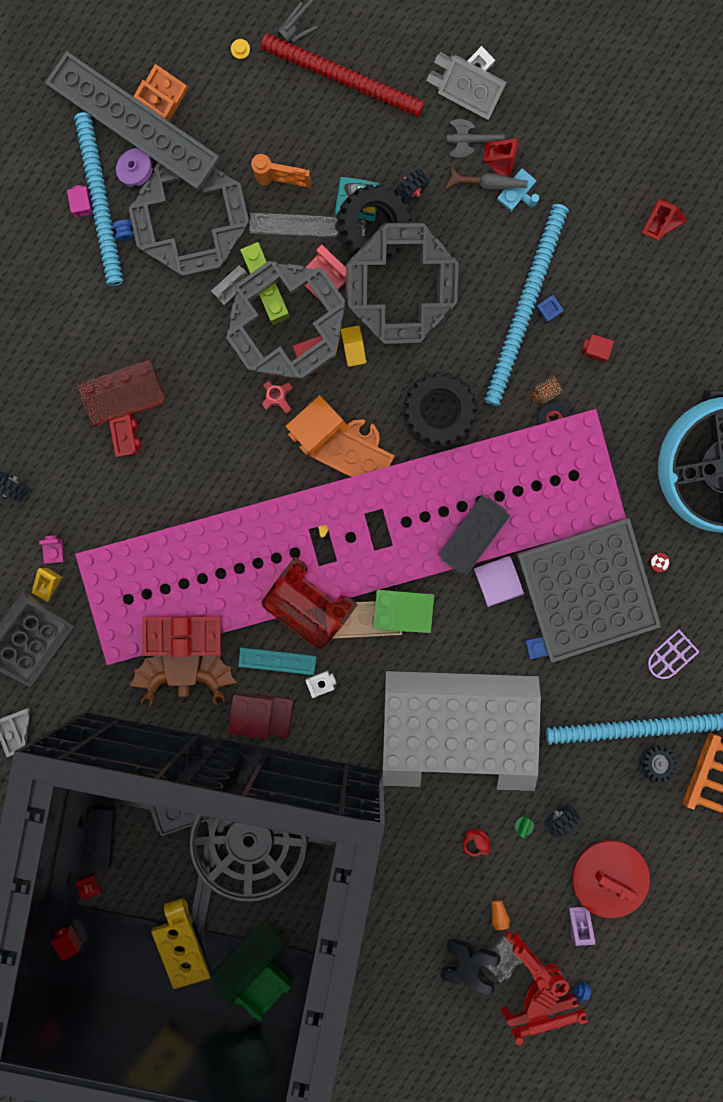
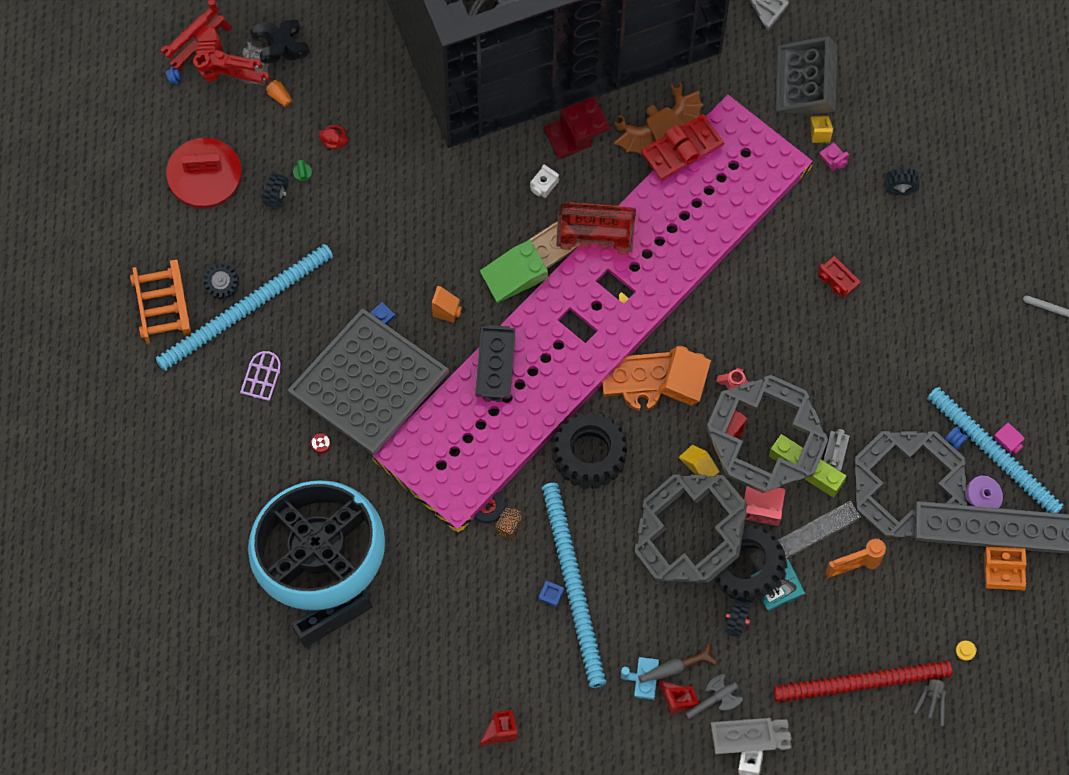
camera: 150 degrees right, 20 degrees down
(121, 392) = (863, 307): clear red slope -> none
(277, 661) = (591, 180): teal tile -> none
(461, 727) = (406, 215): light grey slope -> none
(479, 618) = (445, 305): none -> orange slope
(499, 581) = (449, 346): lavender slope -> none
(581, 926) = (205, 121): lavender slope -> none
(597, 348) = (488, 584): red brick -> none

